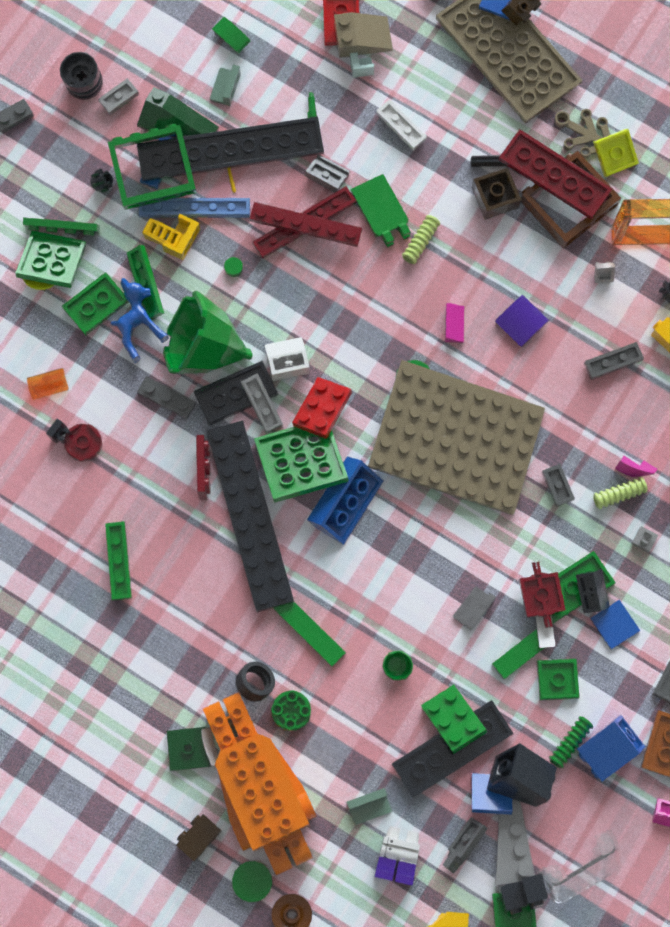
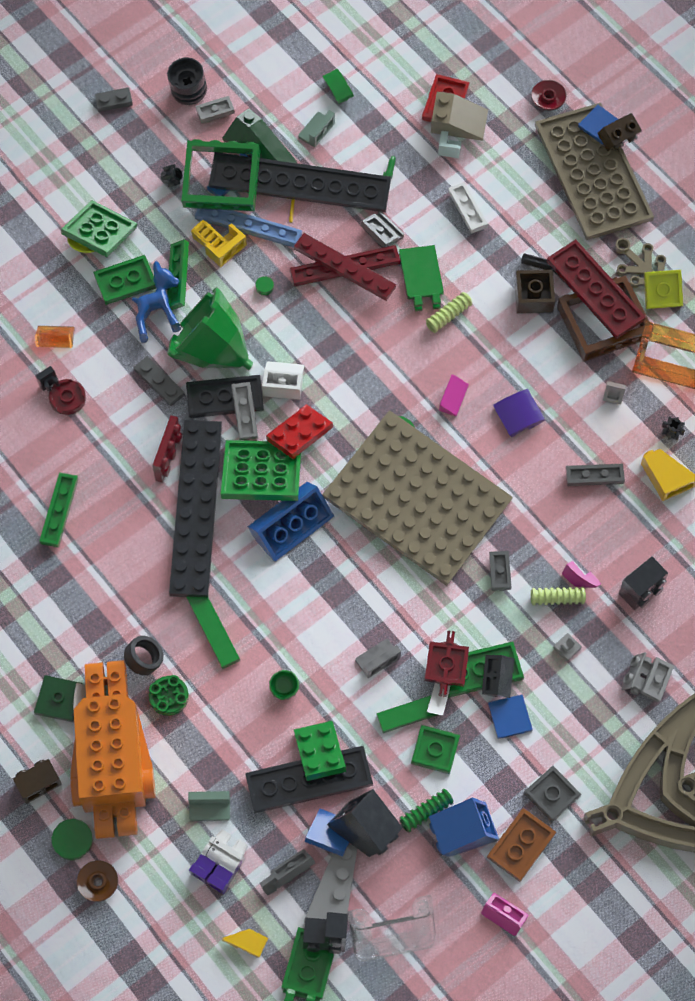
camera: 20 degrees right, 10 degrees down
(68, 226) = (126, 206): green plate -> none

